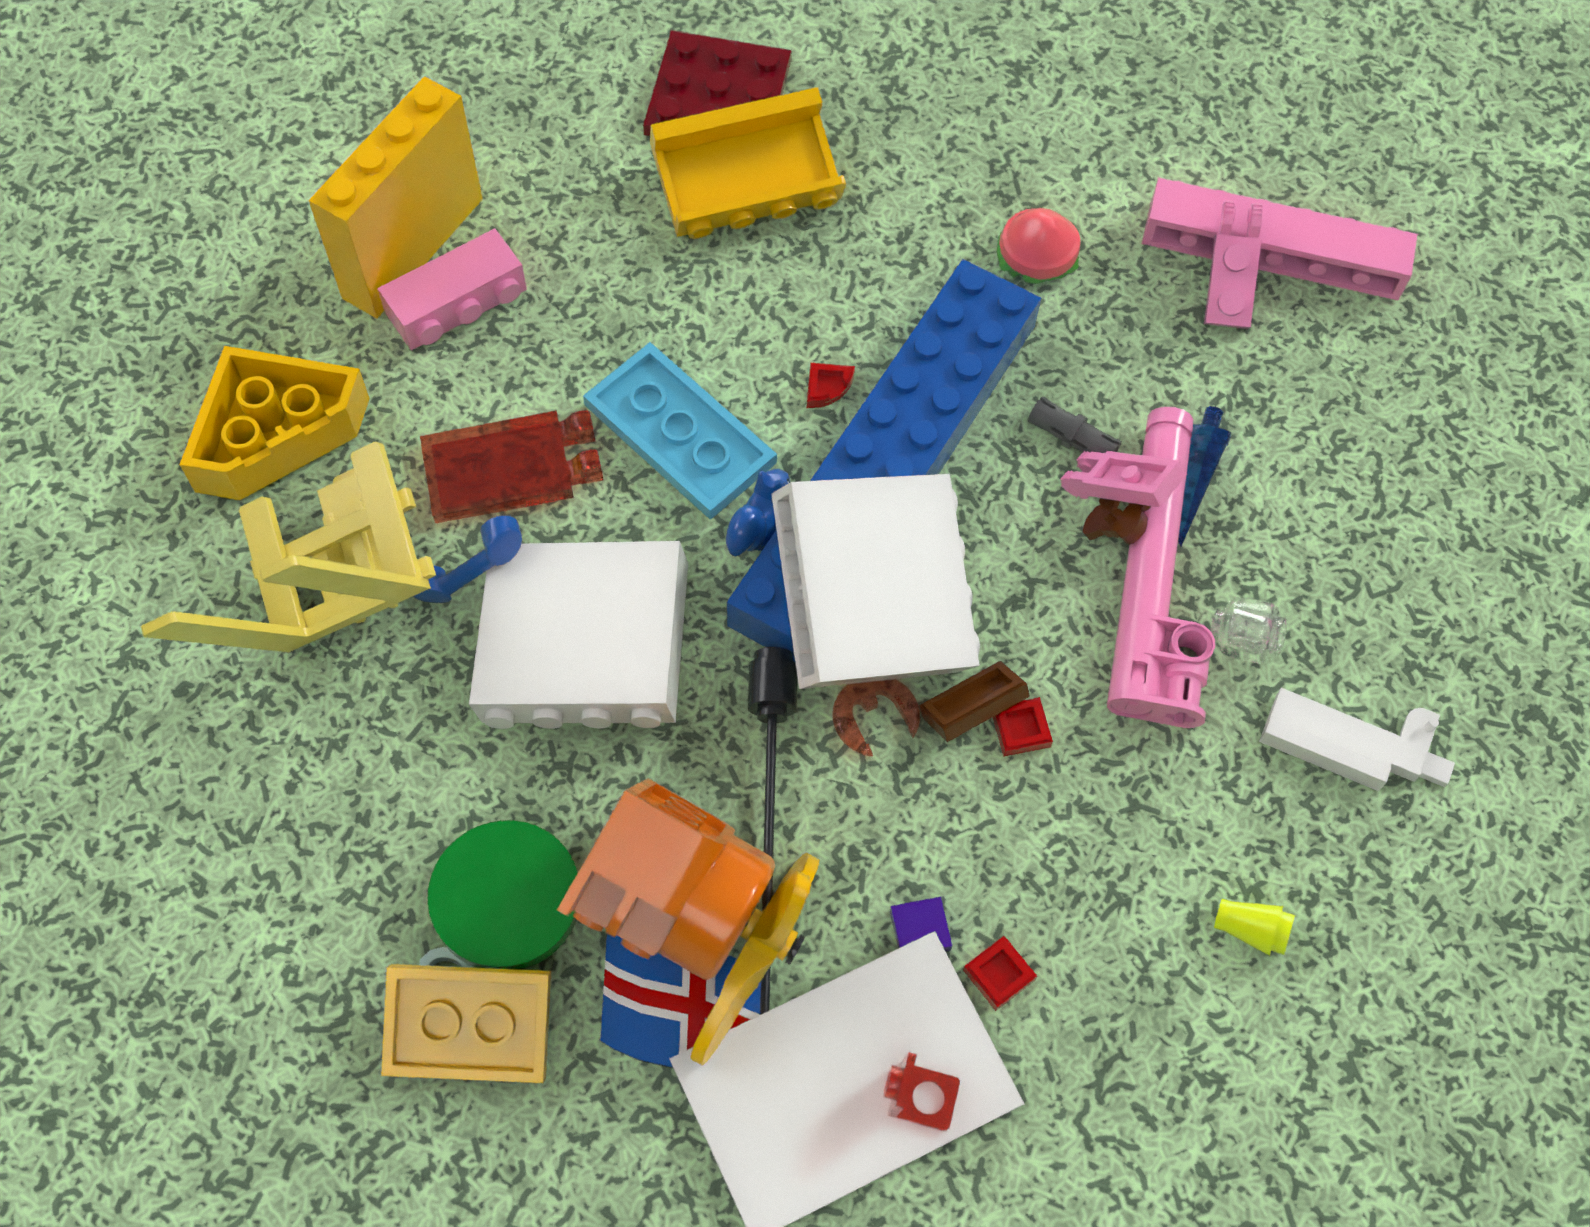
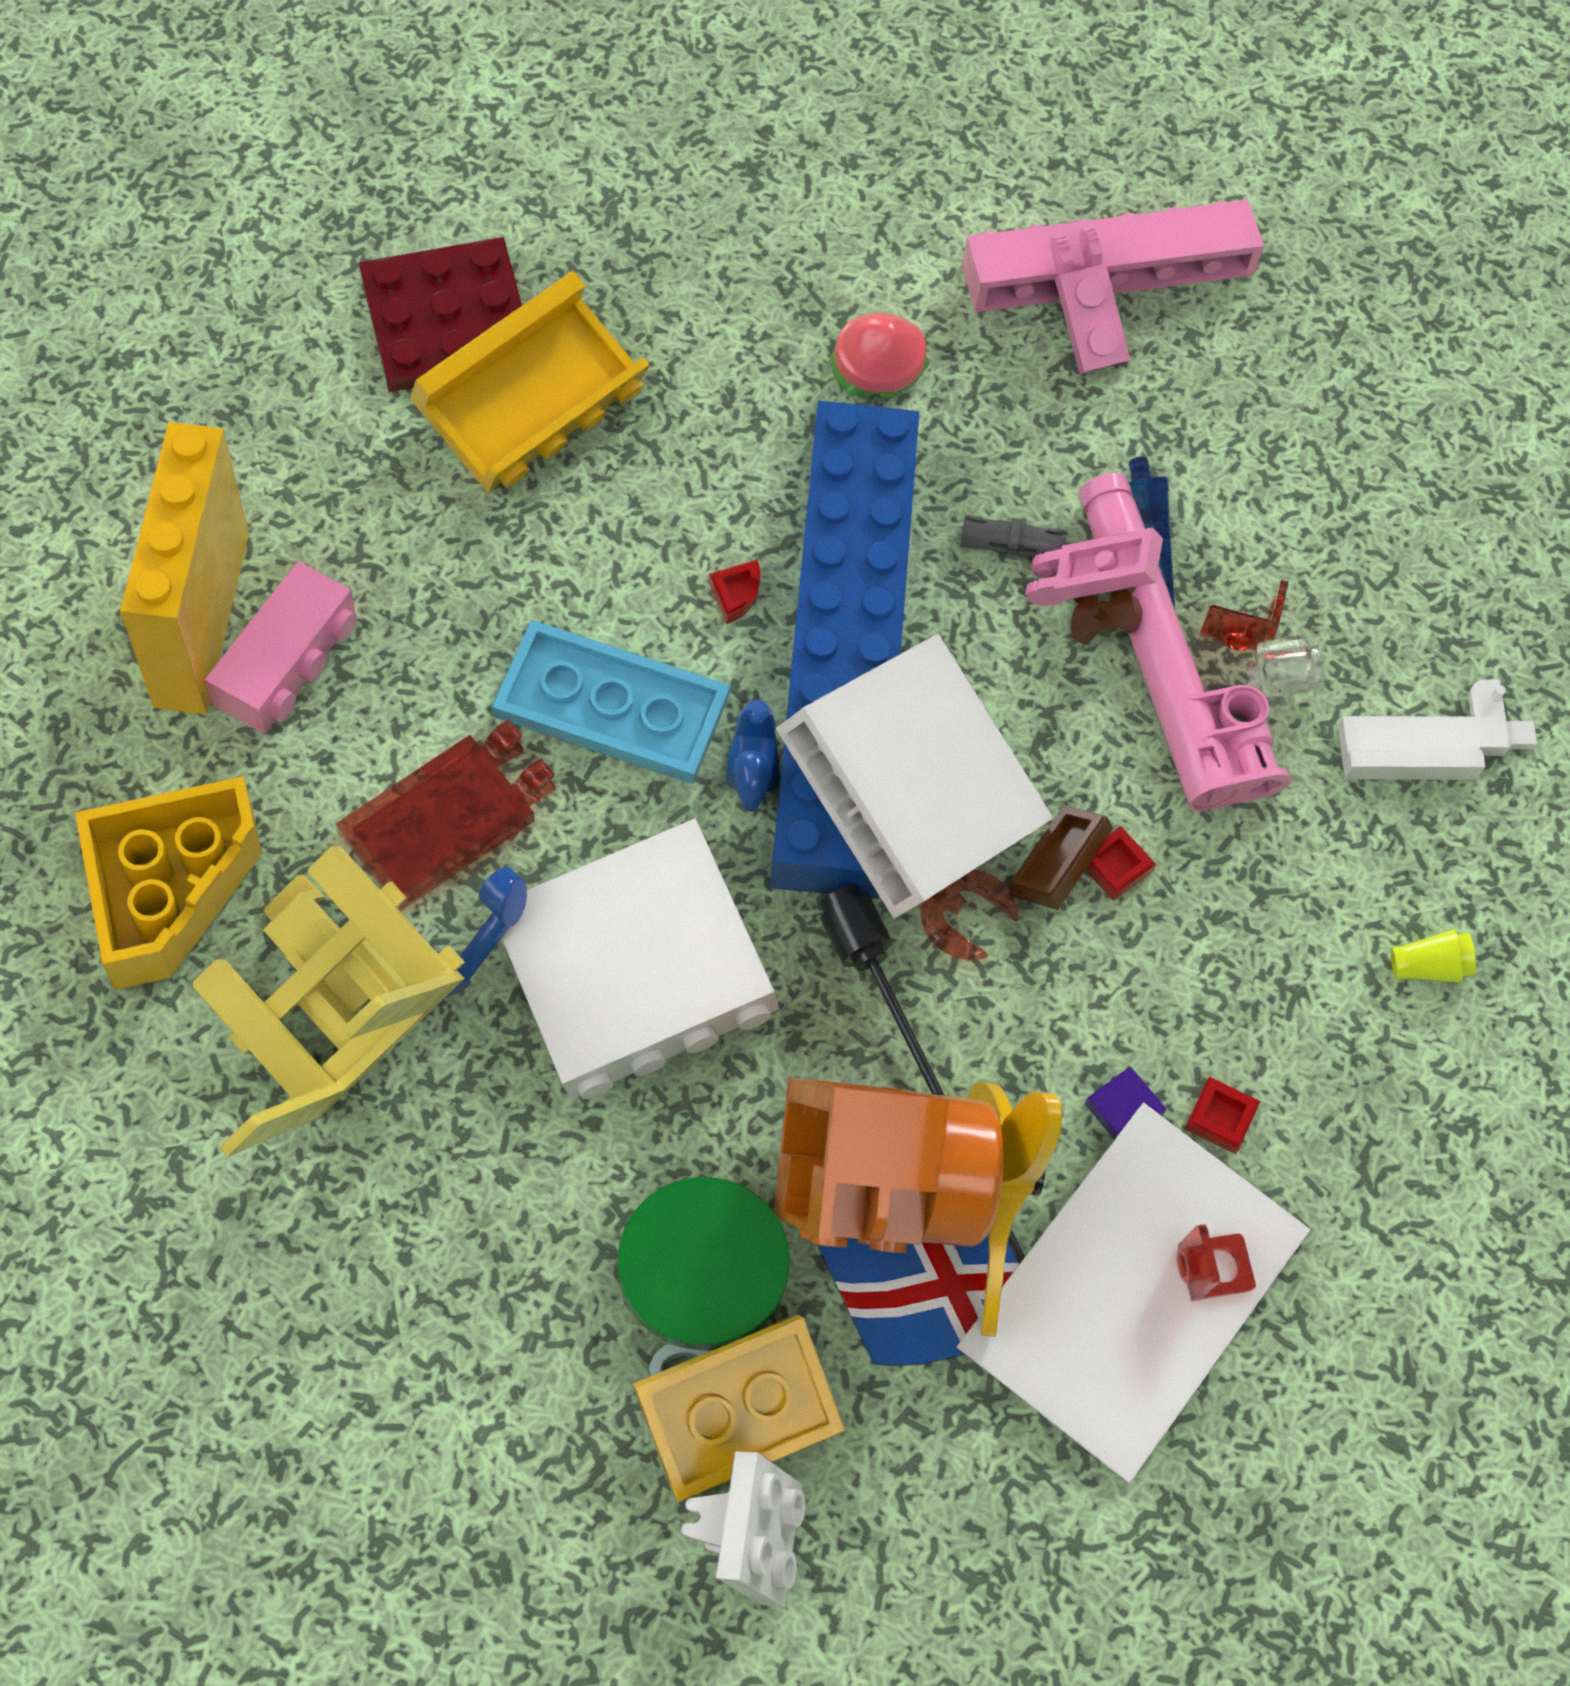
camera: 30 degrees left, 0 degrees up
(419, 1126) = (752, 1528): none -> white plate
(1230, 582) = (1243, 630): none -> clear red bracket

